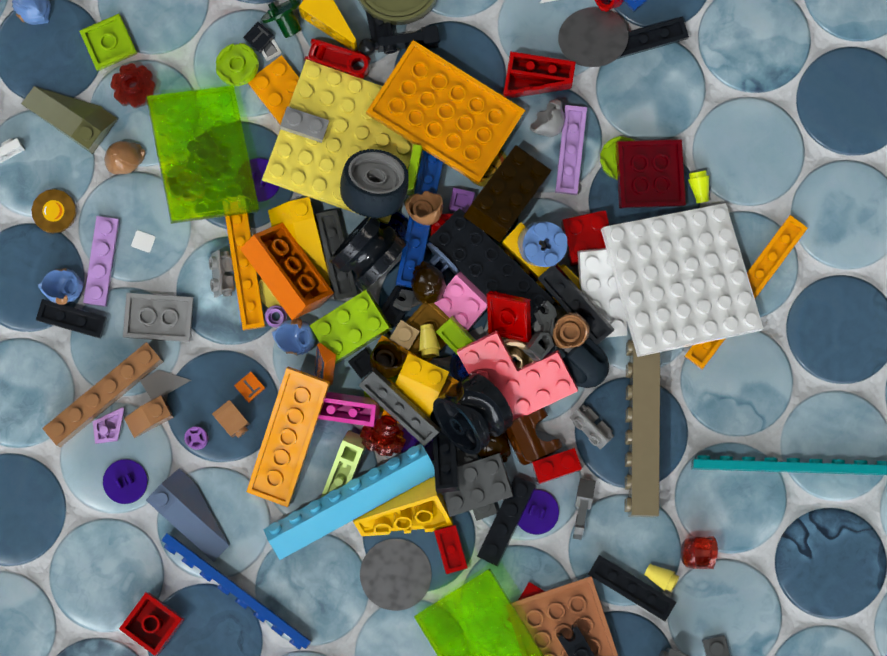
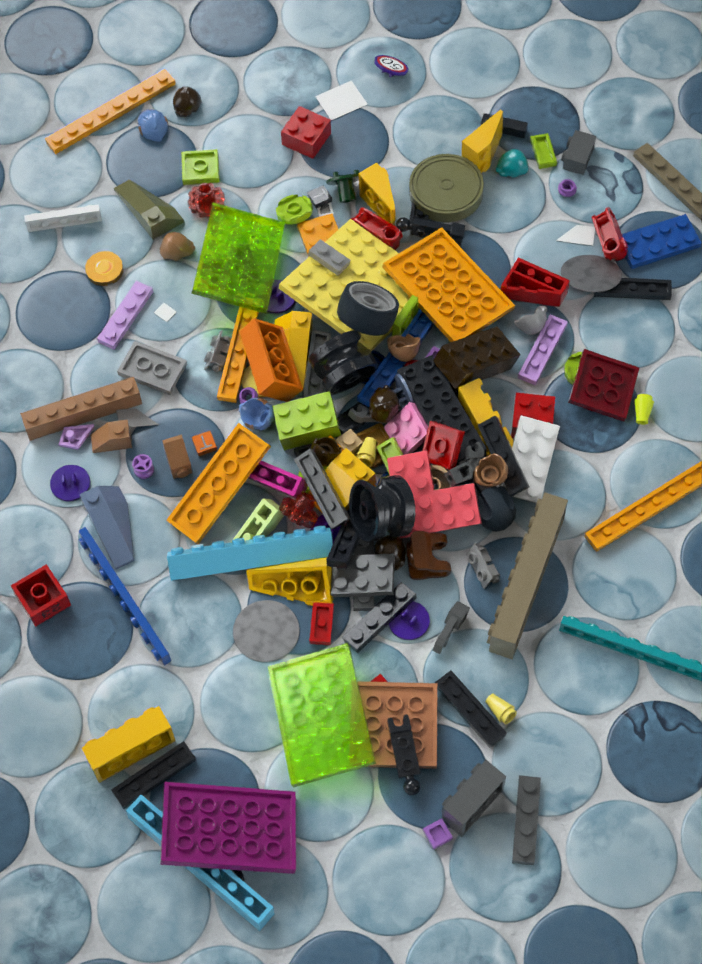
camera: 20 degrees right, 20 degrees down
(61, 286) = (85, 319): medium blue hair -> none
(71, 319) = (82, 347): black plate -> none
(325, 363) = (273, 439): orange slope -> none
(531, 249) = (491, 386): medium blue brick -> none
(556, 466) = (439, 585): red brick -> none
(681, 279) = (602, 467): white plate -> none
(699, 552) = (541, 696): clear red helmet -> none

